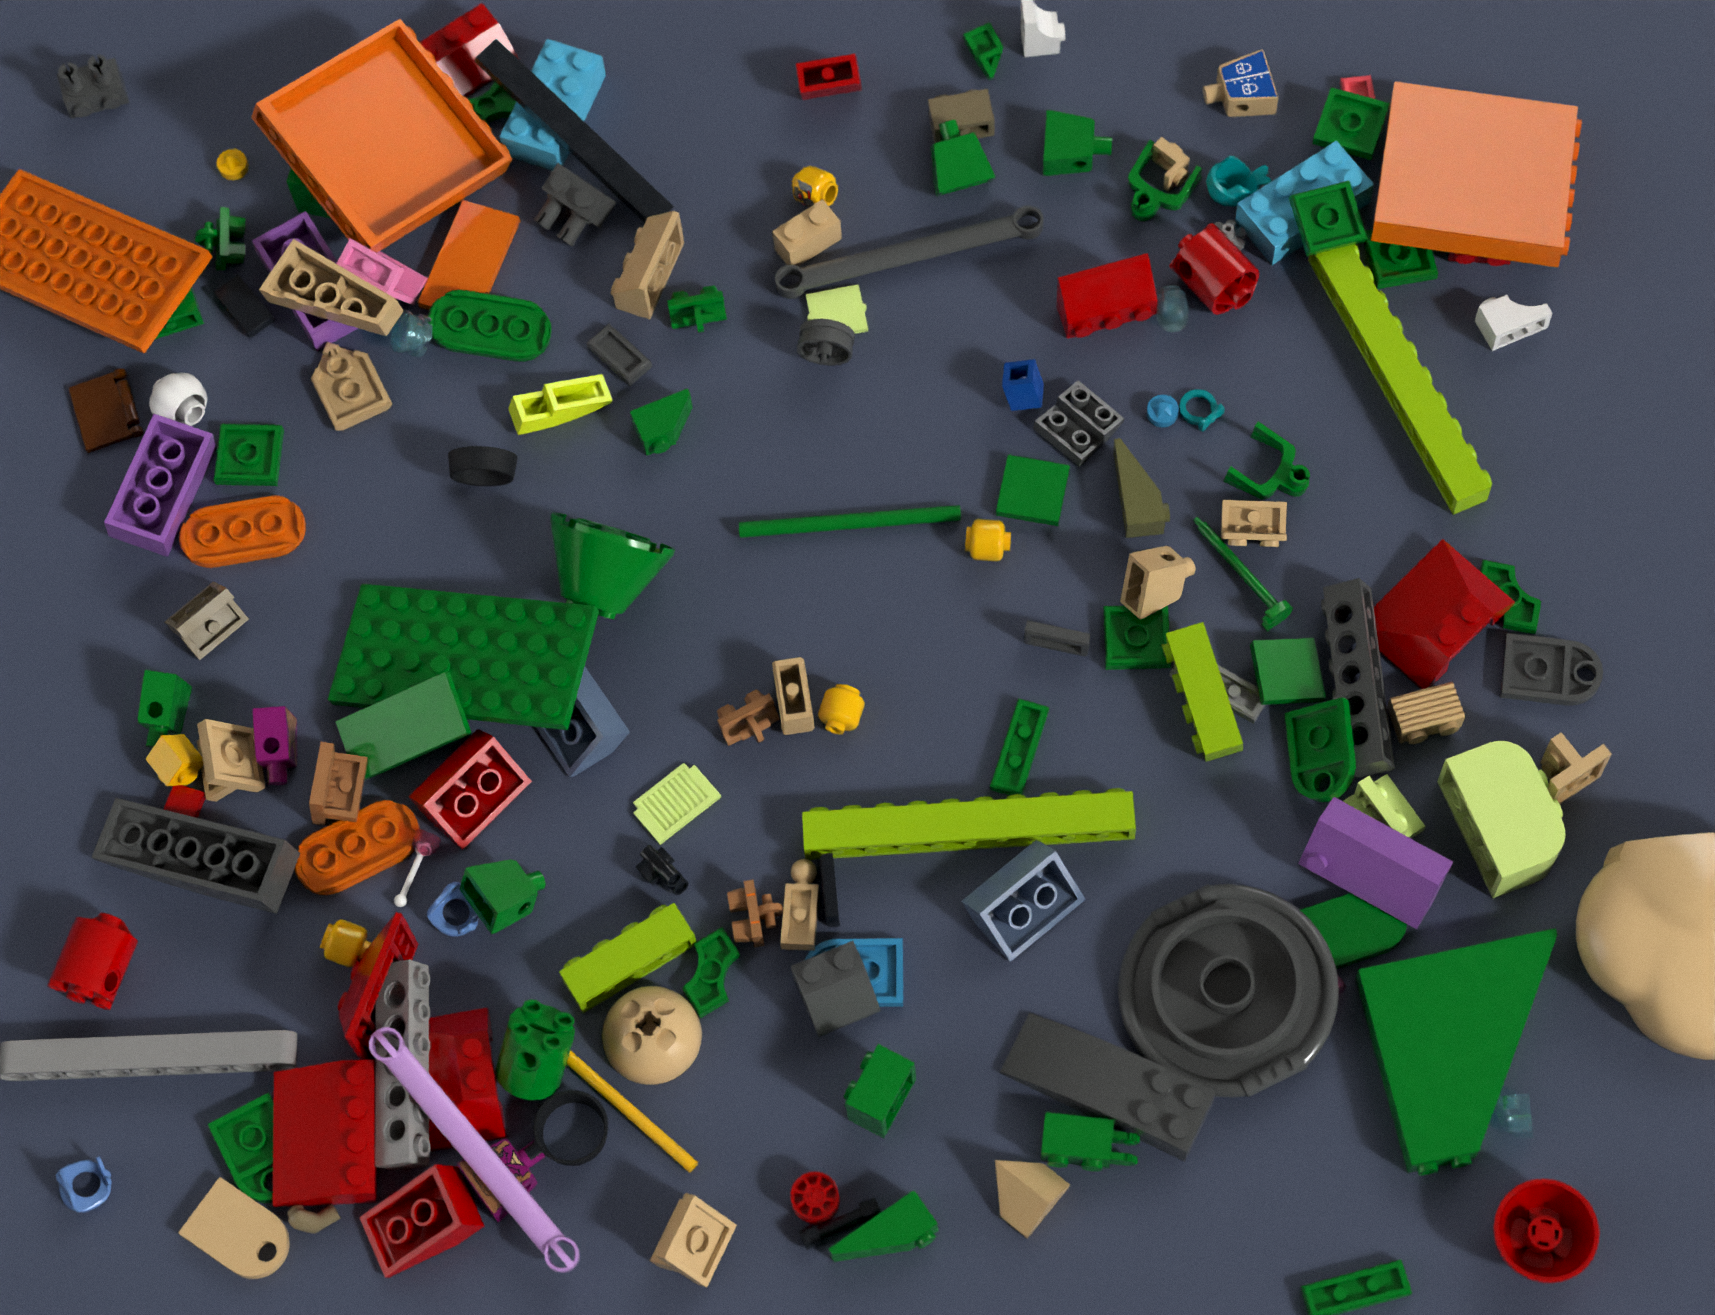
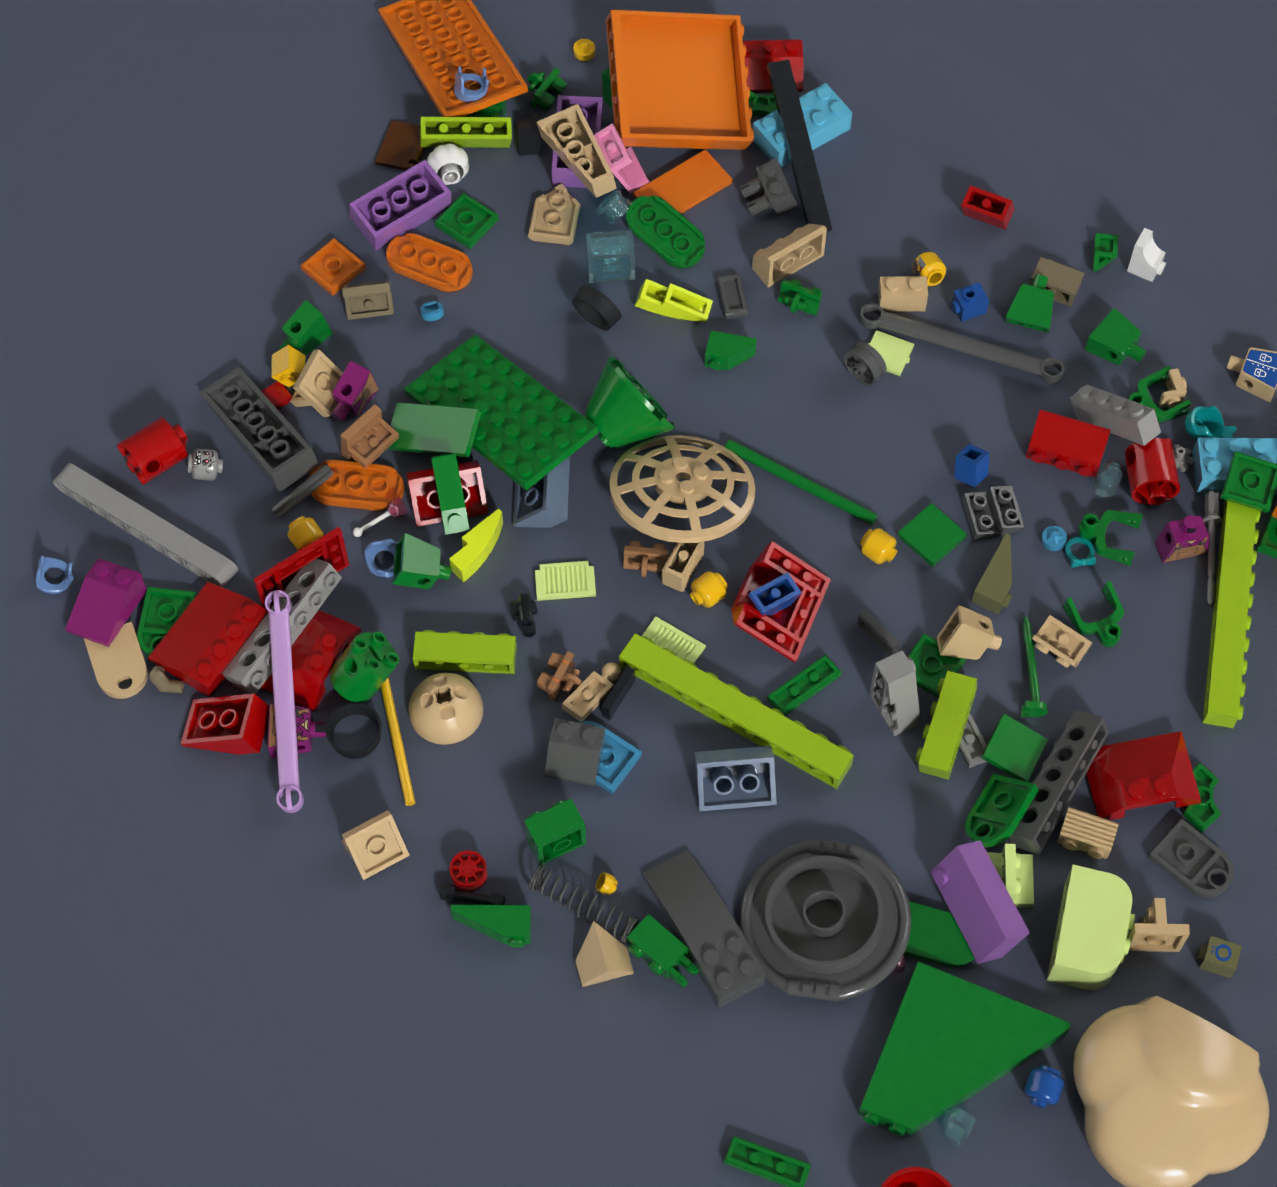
camera: 30 degrees right, 5 degrees down
(131, 299) = (468, 95): none -> medium blue piece
(133, 607) = (333, 266): none -> orange tile
(164, 938) = (204, 464): none -> light grey head
(172, 350) = (466, 132): none -> lime brick
(174, 1176) = (105, 602): none -> magenta slope
(291, 587) = (432, 311): none -> dark azure tile
(304, 895) = (302, 491): none -> dark grey axle
(453, 394) = (610, 256): none -> clear light blue brick
(482, 789) = (450, 493): none -> green slope
(550, 829) = (477, 546): none -> neon yellow slope
(715, 957) = (518, 688): green tile -> none
(732, 622) = (688, 492): none -> tan dish
(843, 790) = (669, 637): none -> yellowish green window
(885, 198) = (969, 302): none -> blue brick
(924, 668) = (775, 595): none -> blue slope
(926, 671) = (789, 627): none -> red slope
(971, 1109) = (606, 883): none -> yellow hinge
(1033, 1129) = (631, 925): none -> dark grey piece
(1129, 693) = (896, 693): none -> light grey wedge
(1138, 232) = (1116, 413): none -> light grey brick
(1205, 375) = (1094, 529): none -> green piece
(1304, 321) = (1183, 539): none -> magenta torso
(1308, 283) = (1211, 518): none -> light grey piece
(1573, 1012) = (1044, 1086): none -> blue head
(1646, 755) = (1219, 956): none -> olive brick

